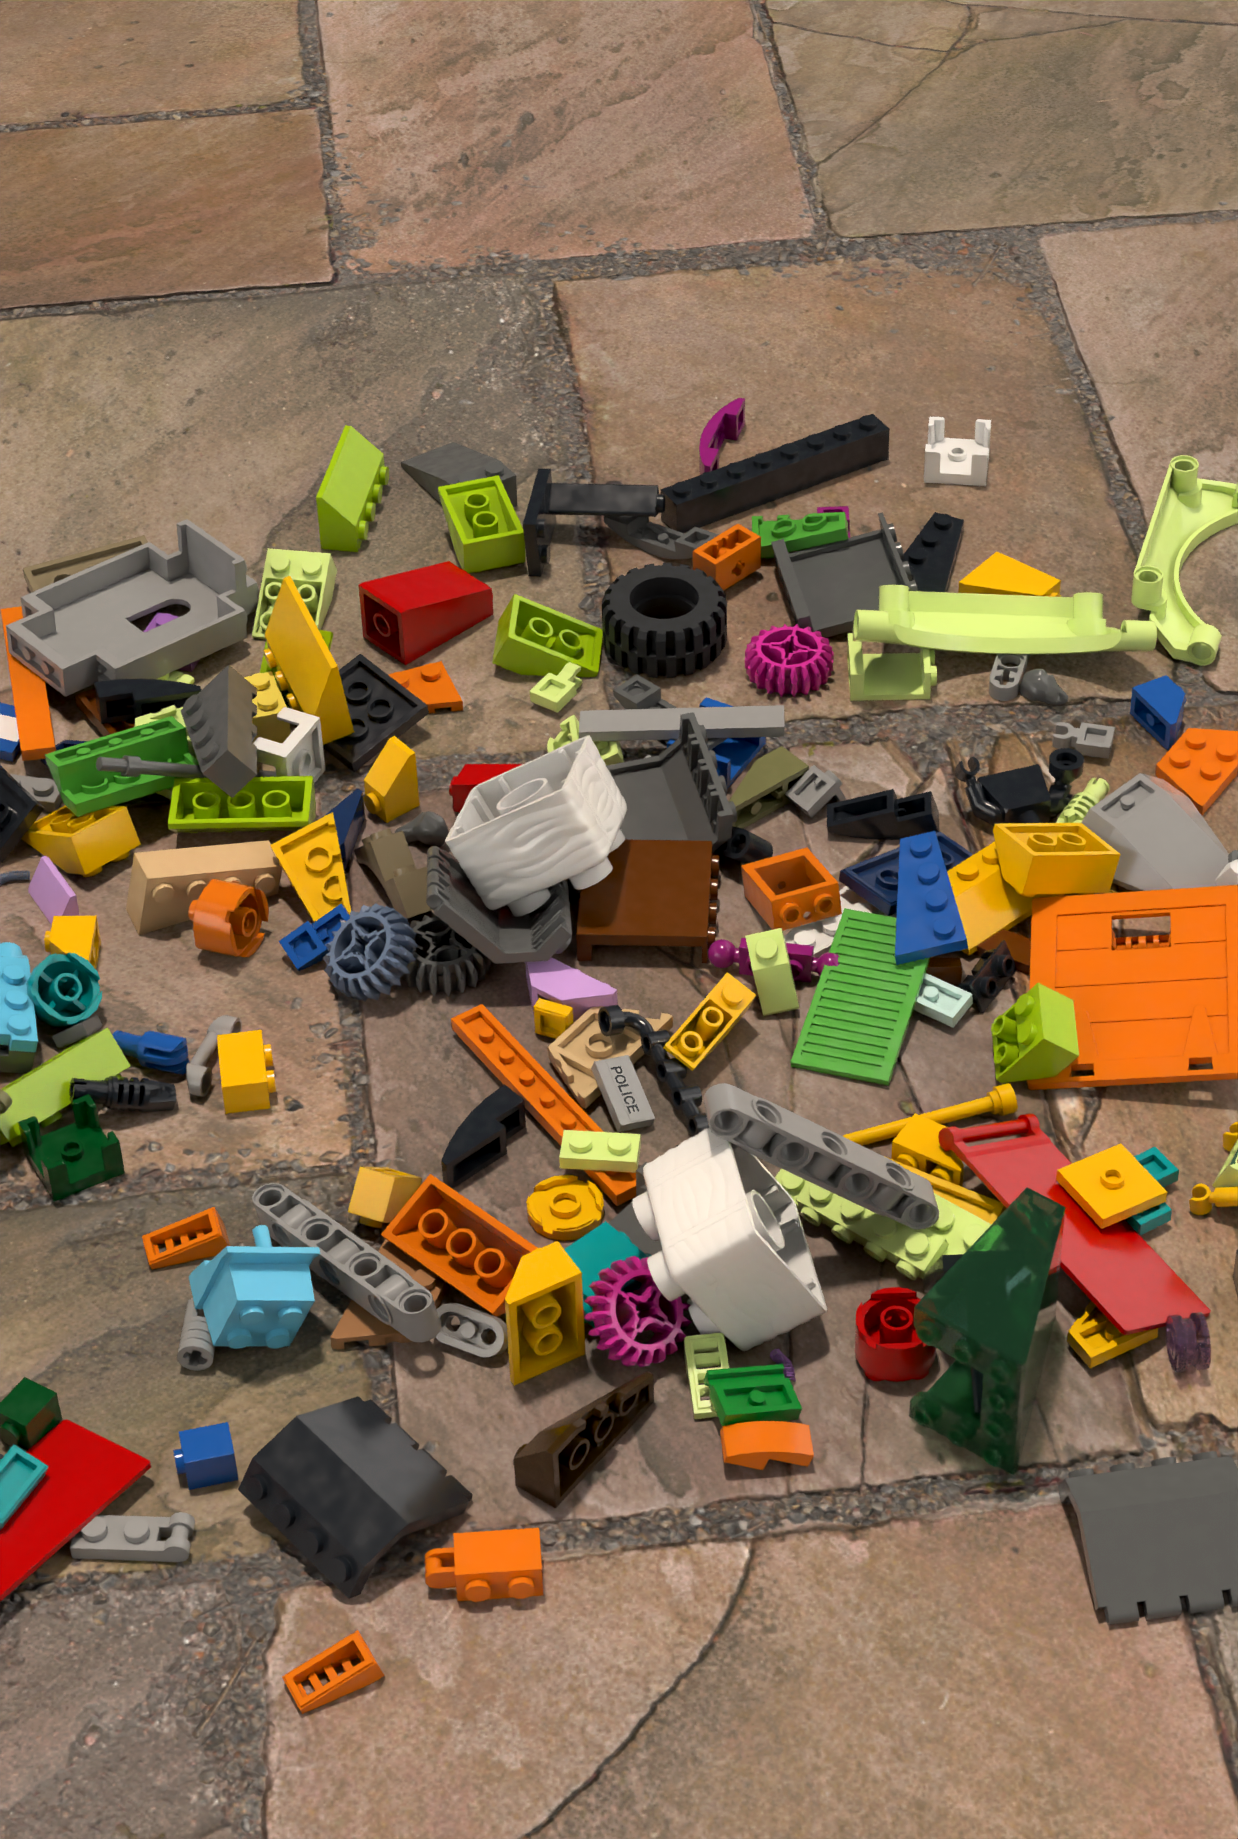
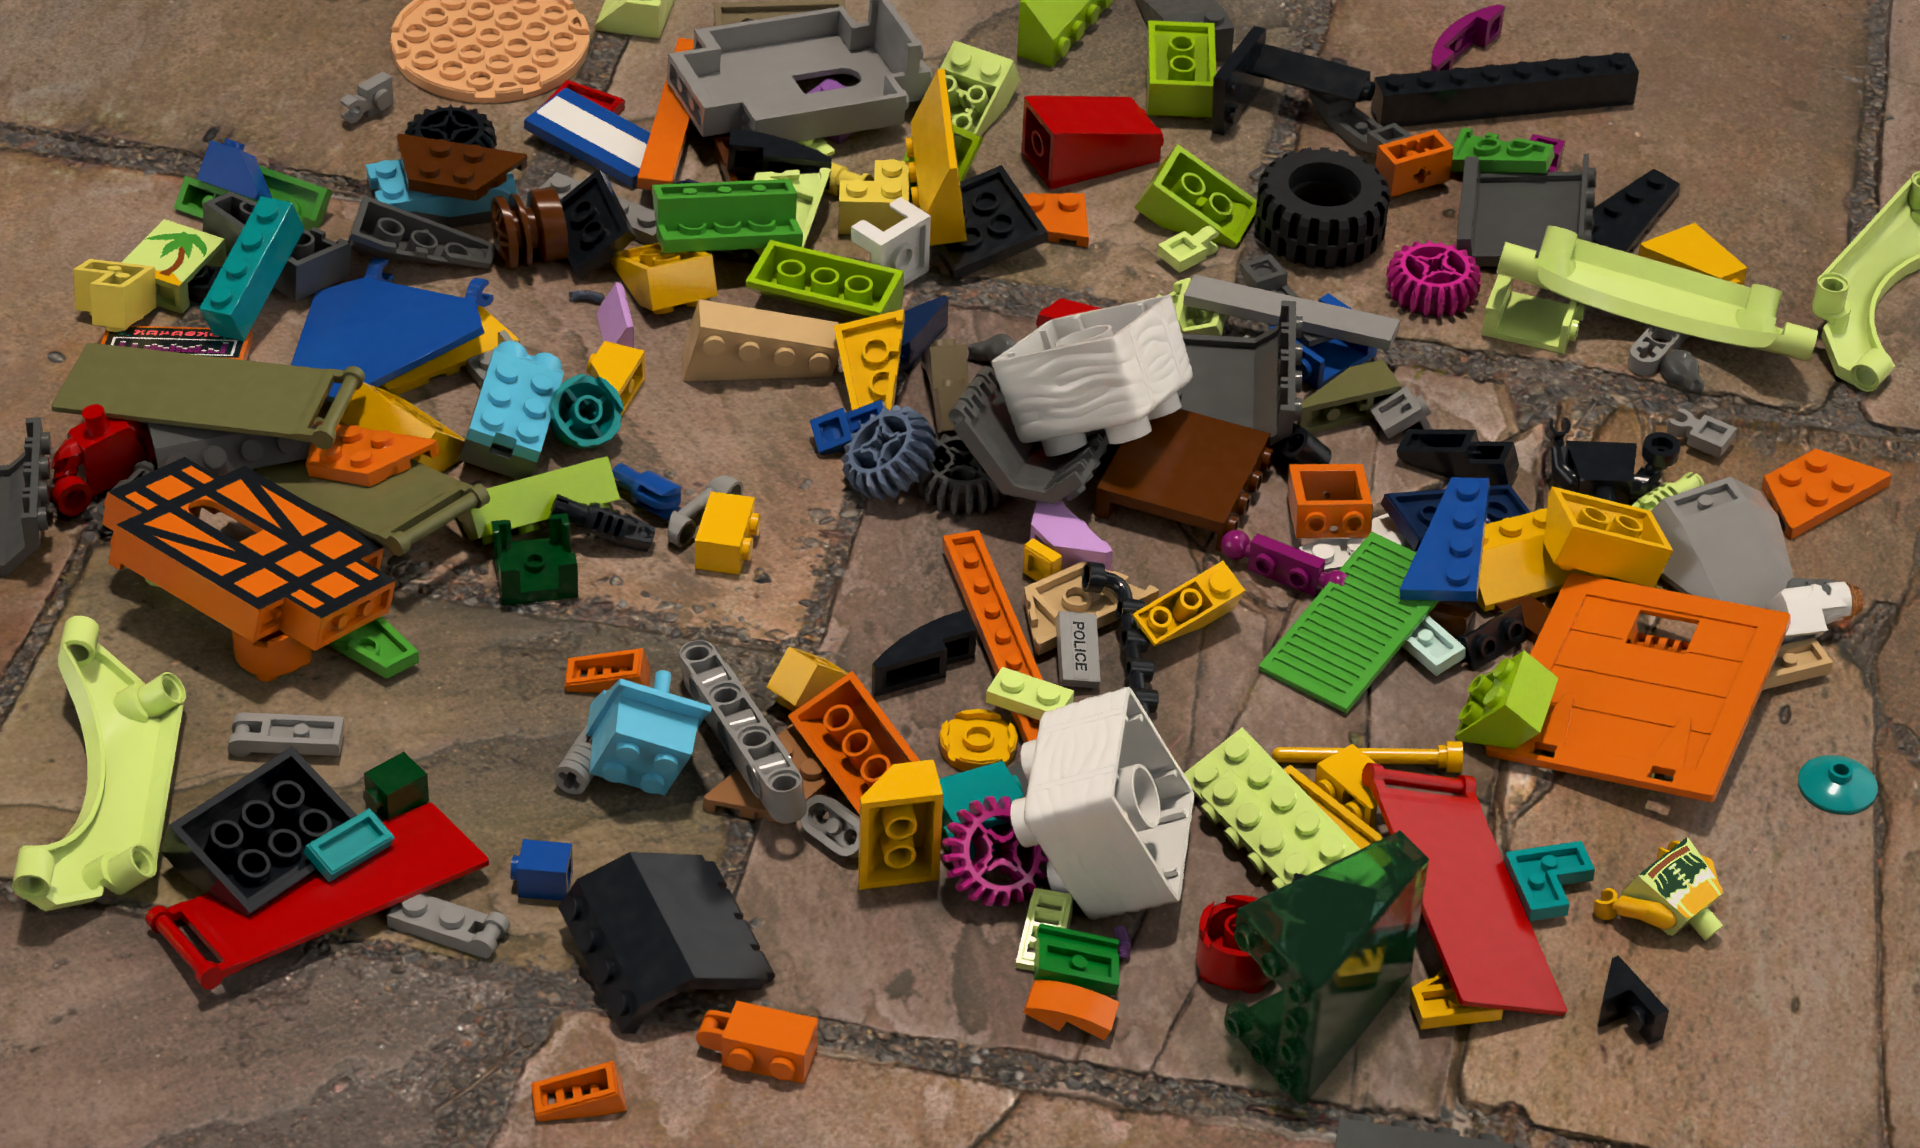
camera: 15 degrees right, 0 degrees up
(77, 1031) = (586, 454): dark grey tile -> none
(133, 766) = (729, 217): dark grey bar -> none
(223, 730) = (831, 203): dark grey wedge -> none
(229, 918) = (769, 386): orange brick -> none
(392, 782) = (982, 298): yellow slope -> none
(572, 1447) = (889, 956): dark brown wedge -> none
(772, 971) = (1272, 572): yellowish green slope -> none
(820, 1156) = (1218, 750): light grey beam -> none
(957, 459) = (1703, 121): white panel -> none
(1111, 1186) = (1517, 864): yellow plate -> none
(1159, 709) = (1794, 421): blue slope -> none
(1188, 1342) = (1524, 1030): wheel -> none

